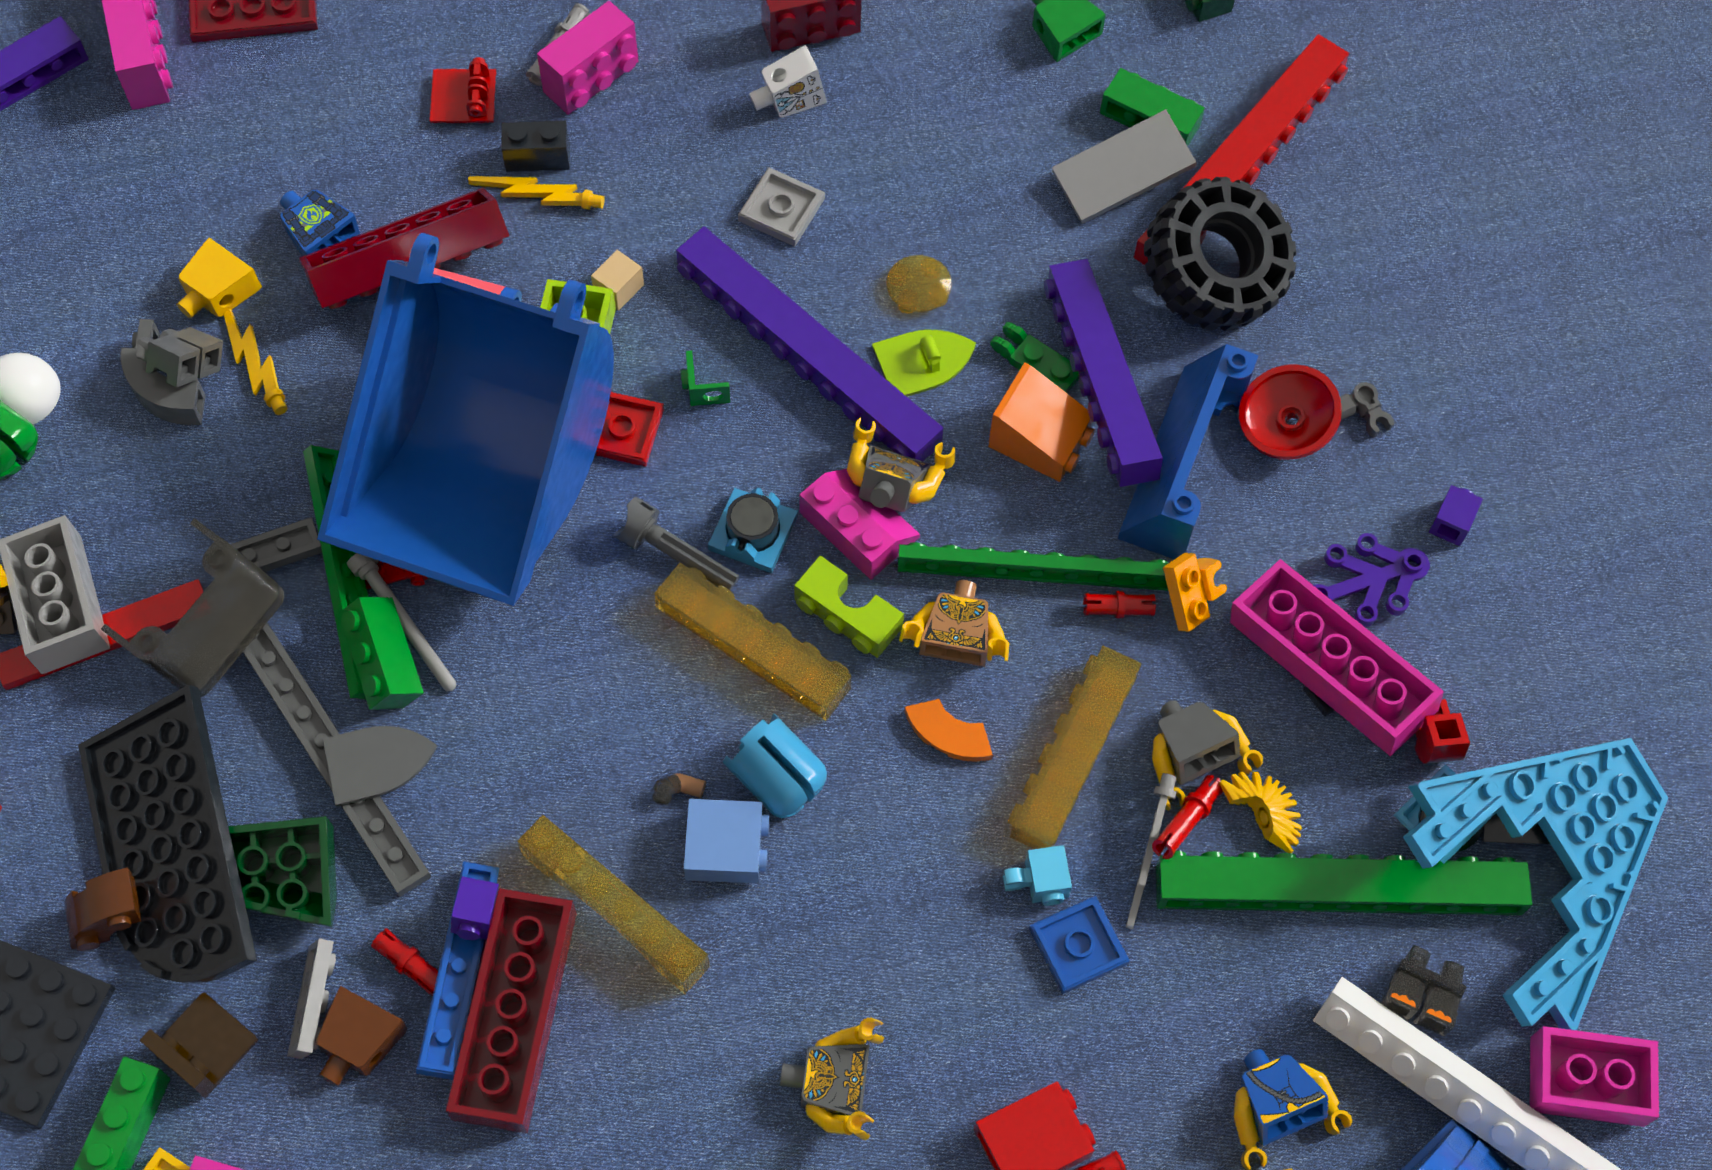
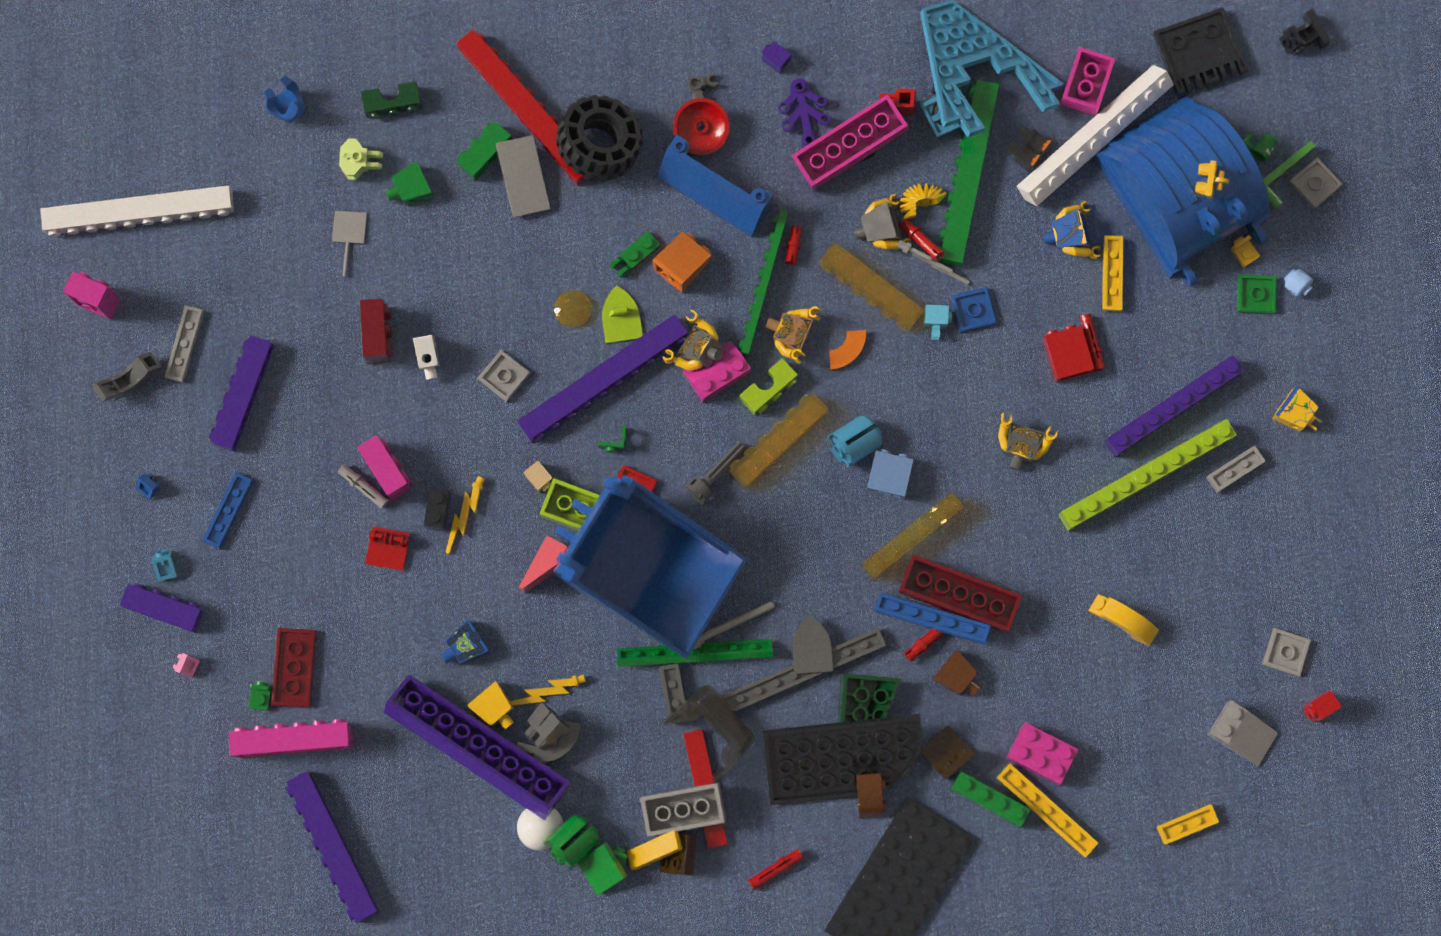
camera: 75 degrees left, 15 degrees up
(133, 263) = (476, 747): none -> dark purple brick
(312, 998) = (934, 695): light grey plate -> none
(360, 261) = (498, 593): dark red brick -> none
(380, 653) = (751, 636): green brick -> none
(474, 908) = (906, 605): dark purple brick -> none
(677, 783) = (850, 495): arm -> none
(752, 528) = (710, 428): piece -> none
(1103, 374) = (659, 219): dark purple brick -> none
(1190, 587) = (794, 206): light orange plate -> none

